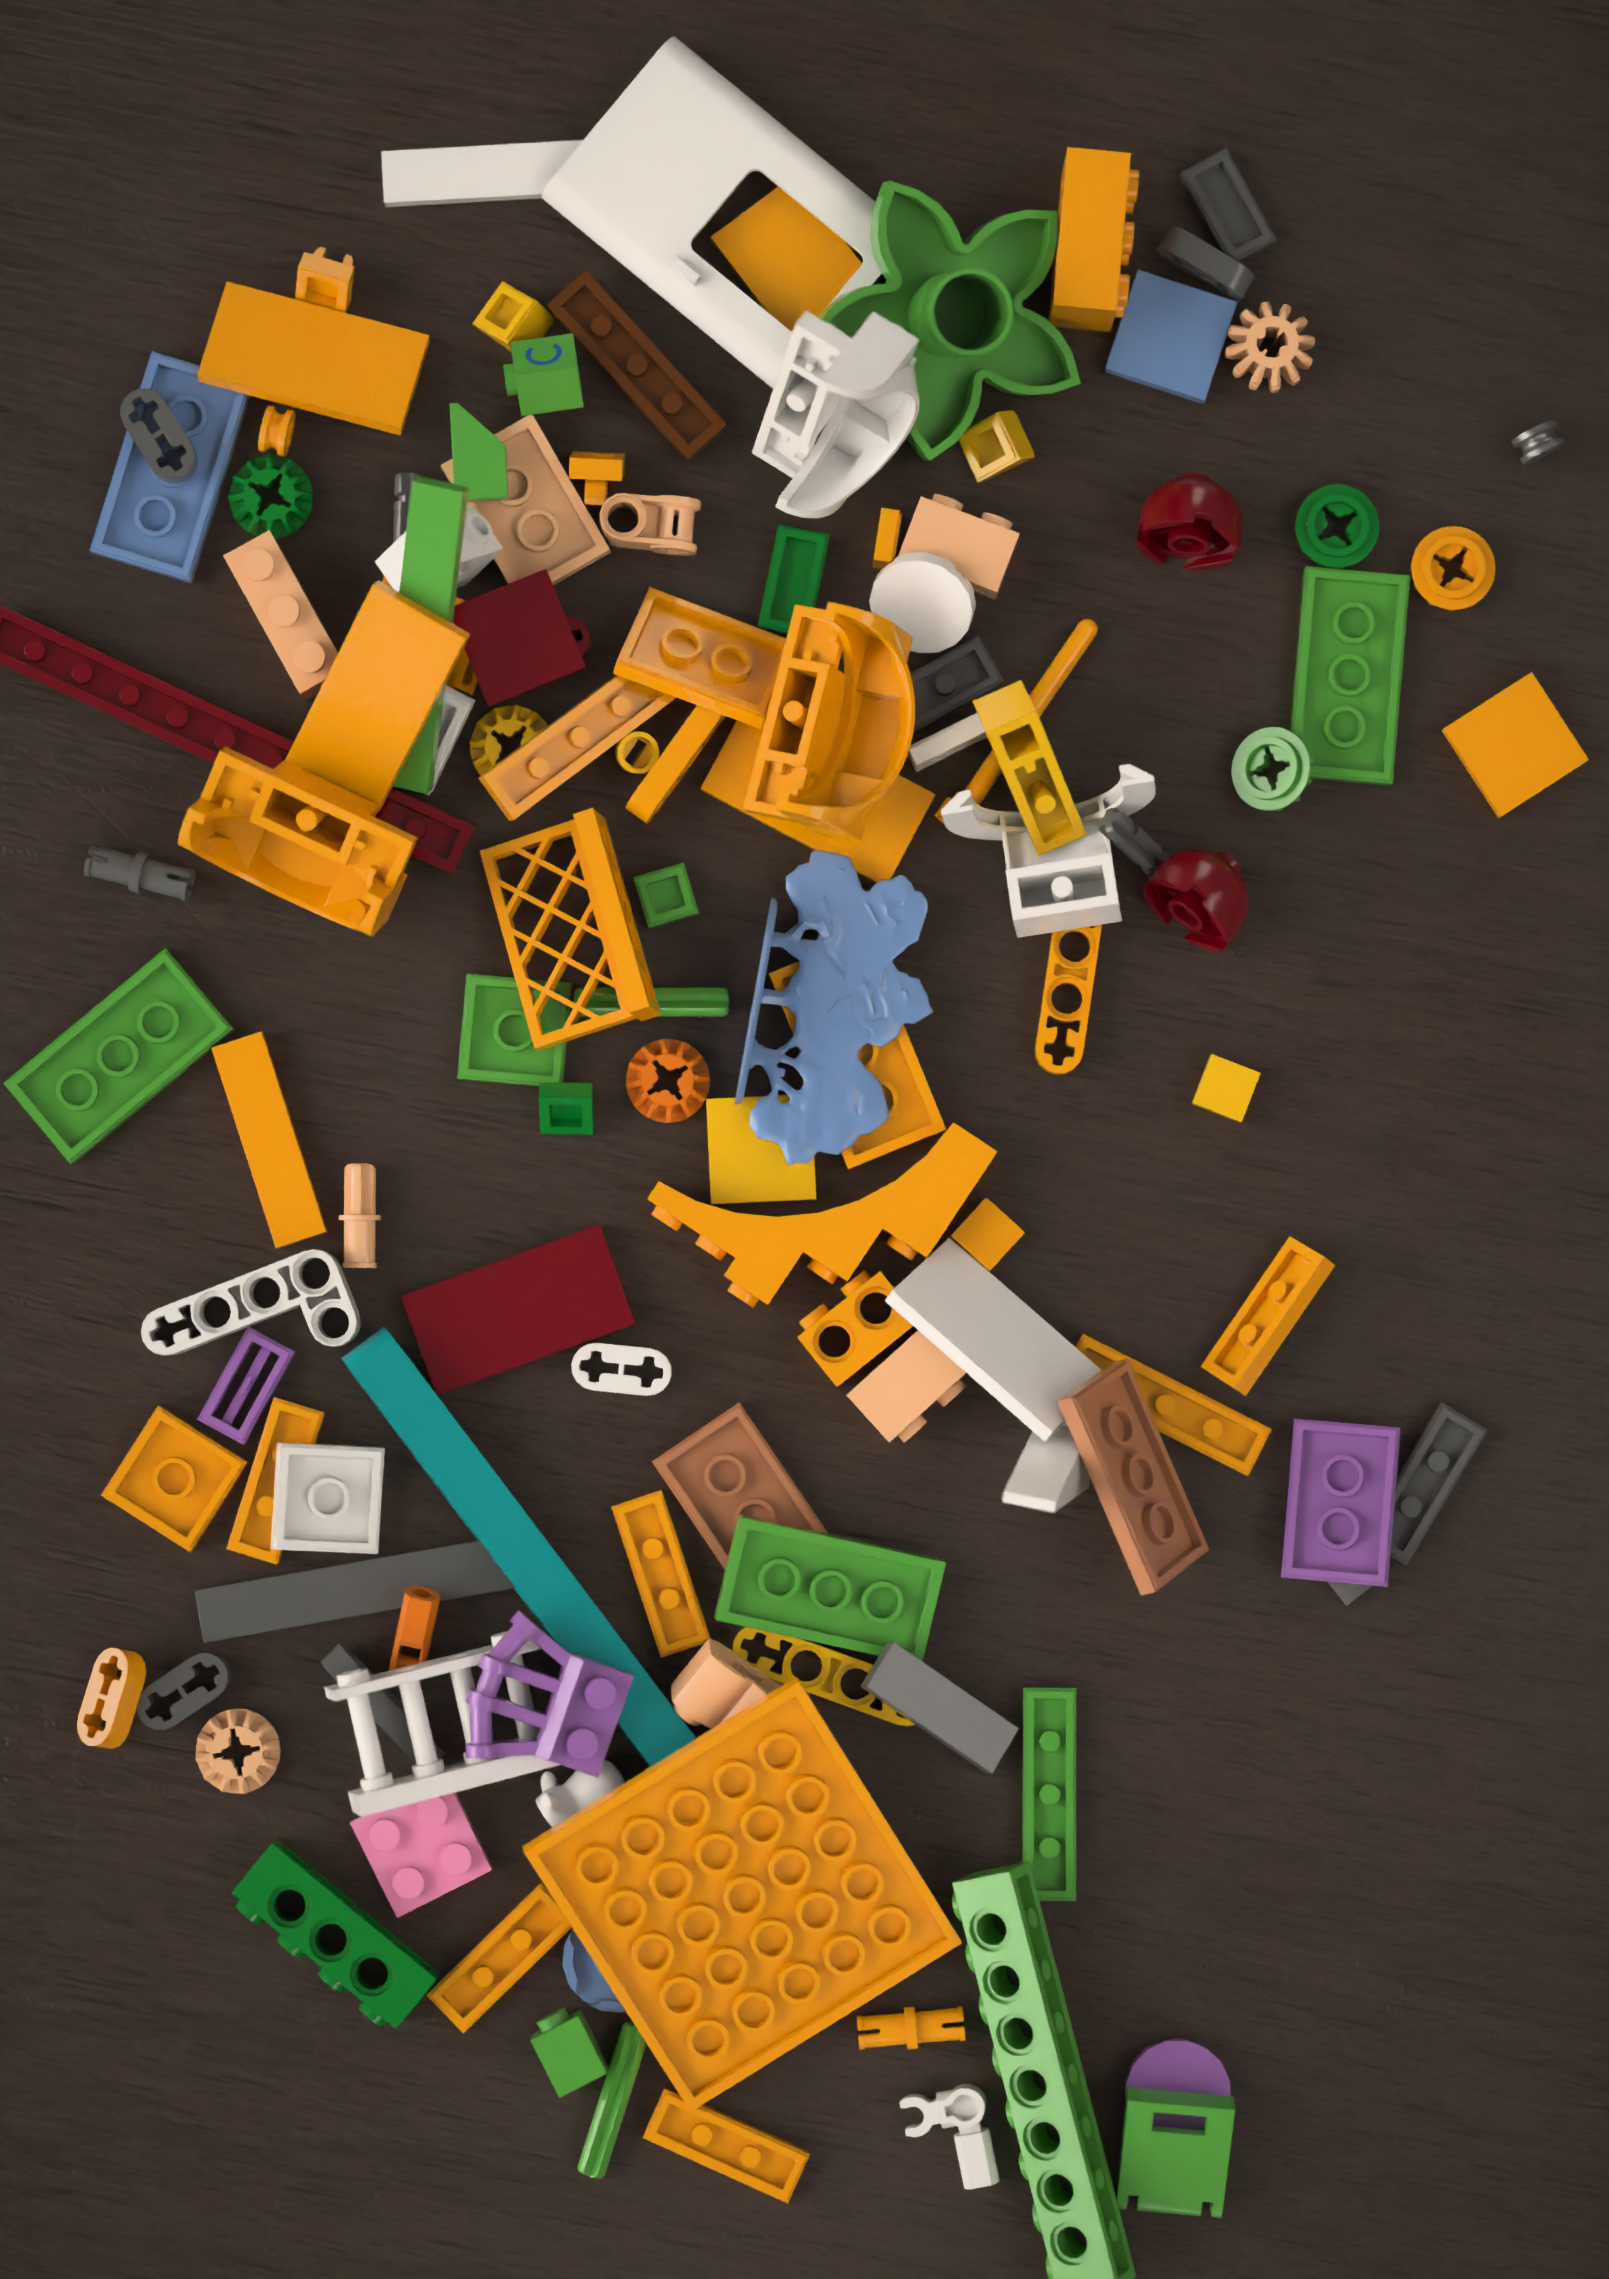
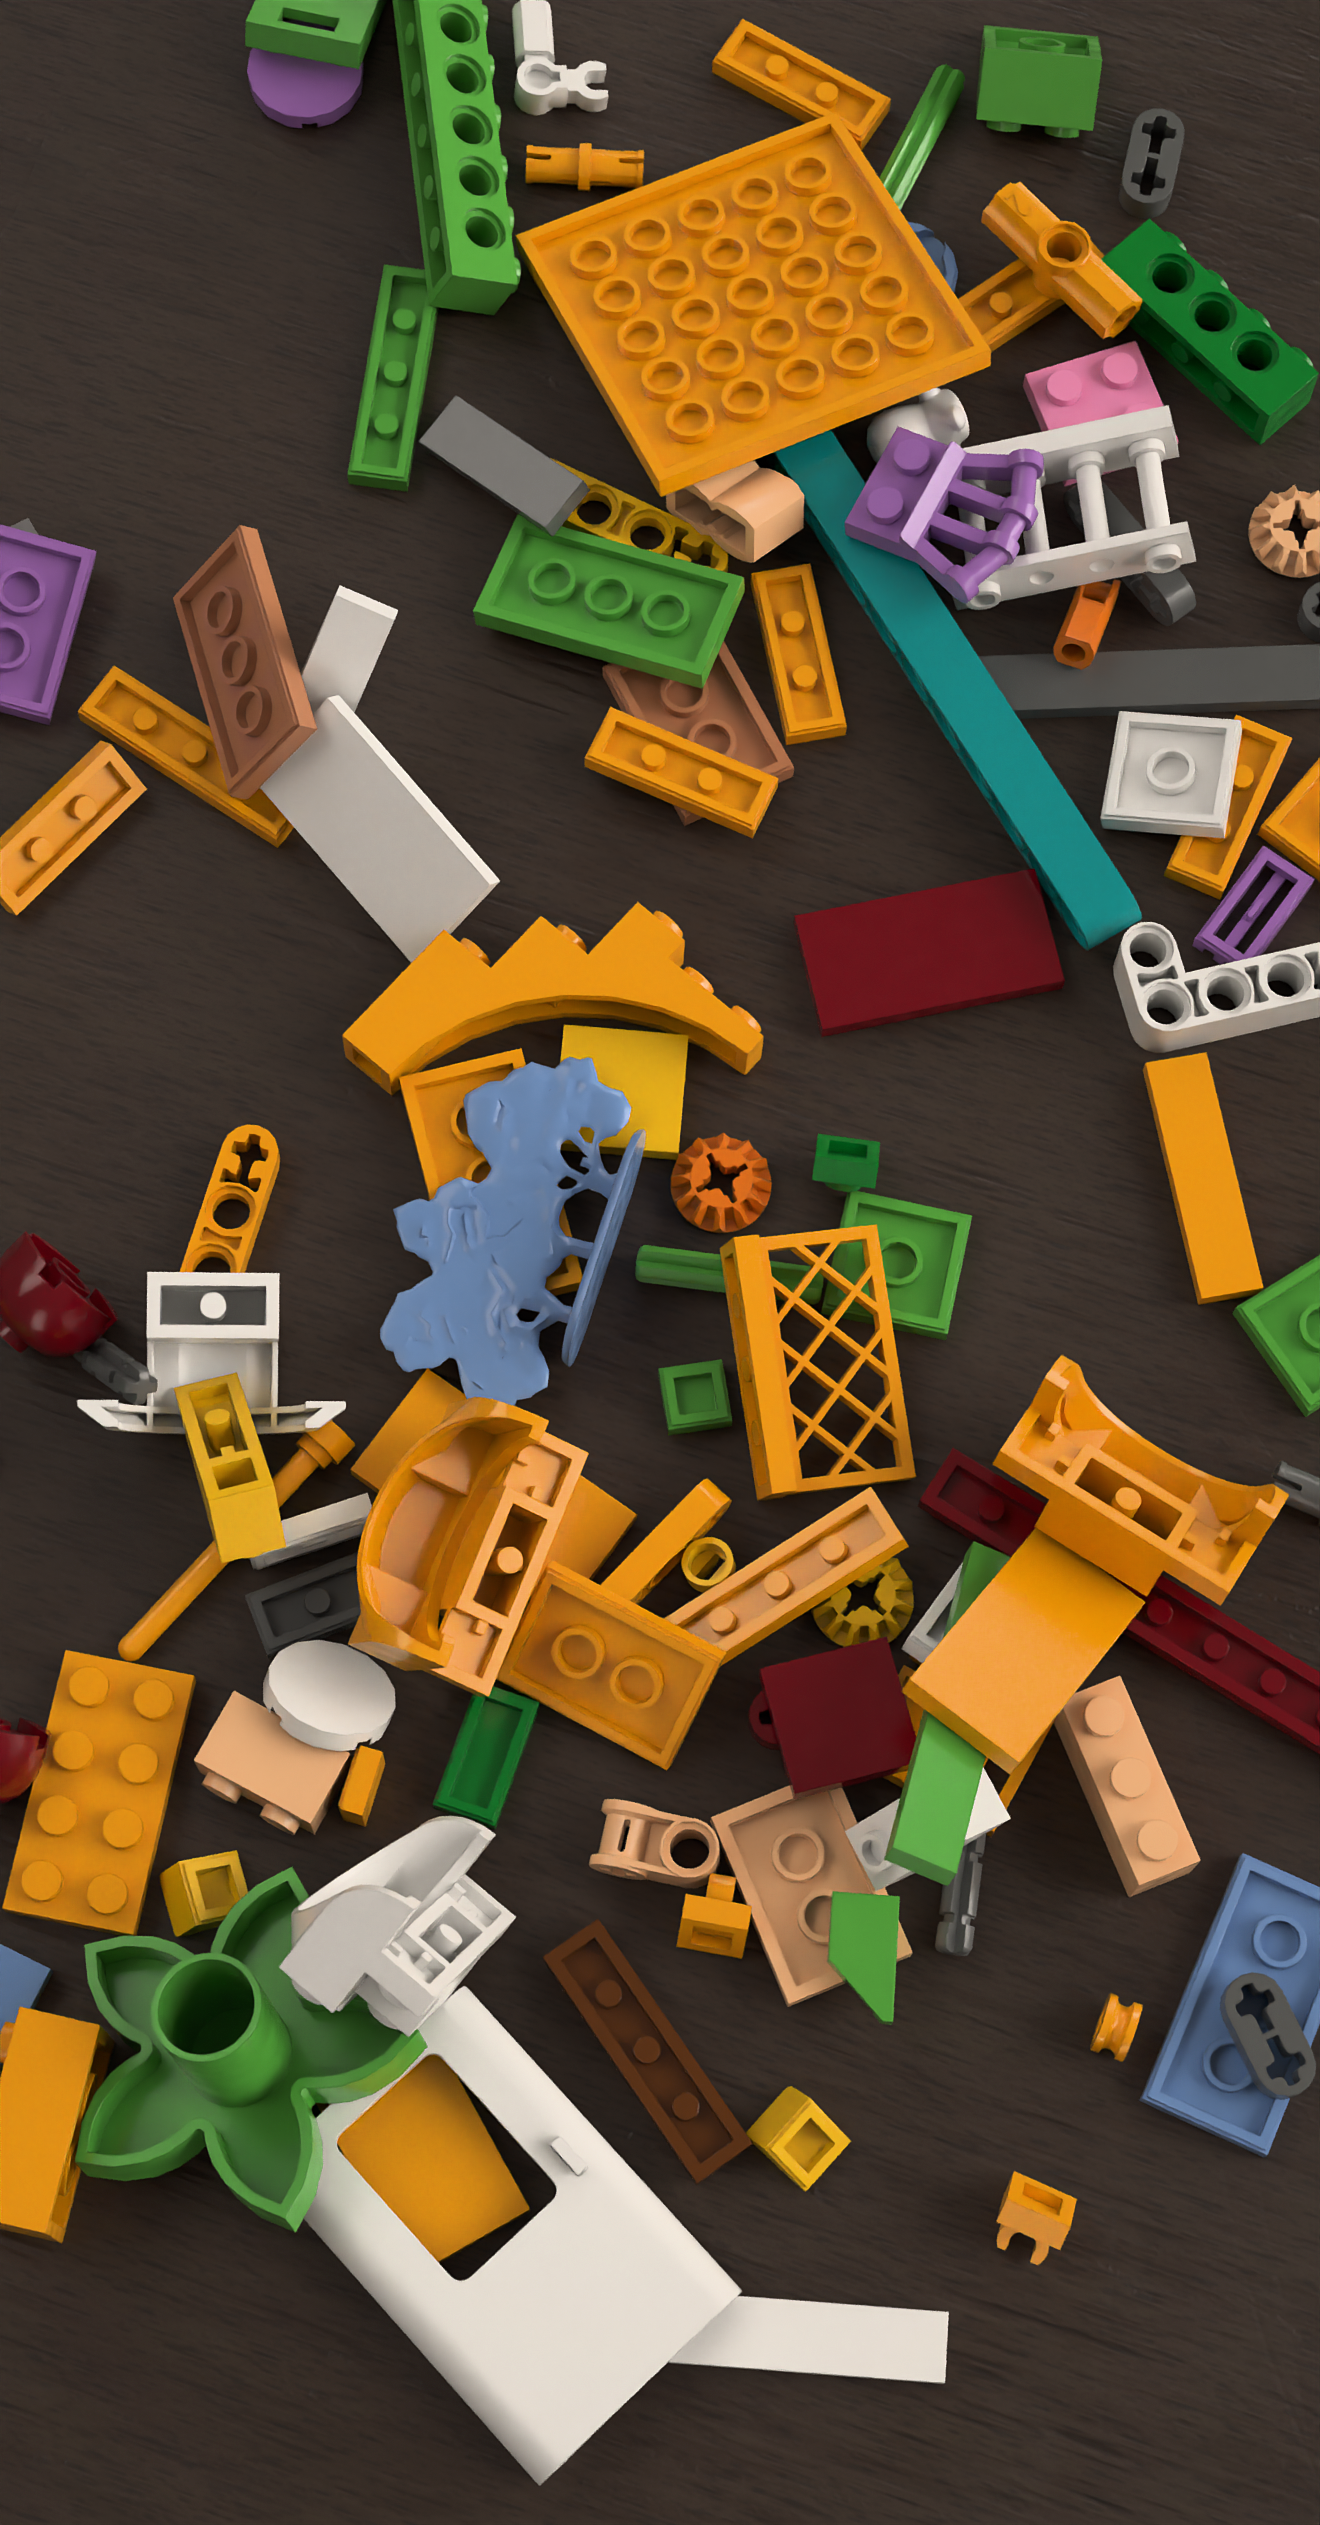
camera: 175 degrees left, 15 degrees down
(294, 488) = (1099, 1952): green gear -> none
(313, 358) = (1060, 2116): light orange tile -> none
(359, 1216) = (1104, 1074): light nougat axle -> none
(411, 2107) = (1161, 165): none -> dark grey beam
(497, 2001) = (1082, 284): none -> light orange piece
(510, 2177) = (1038, 80): none -> bright green slope
(544, 375) = (766, 2049): bright green brick -> none
(568, 2051) = (958, 183): bright green brick -> none
(619, 1382) = (815, 871): white beam -> none
(747, 1438) = (681, 772): none -> light orange tile
(865, 1338) = (526, 863): light orange brick -> none
(906, 1386) = (497, 799): light nougat brick -> none
(987, 1234) = (367, 963): light orange tile -> none
(1091, 511) = (100, 1794): none -> light orange plate
(1226, 1088) = (60, 1089): yellow tile -> none

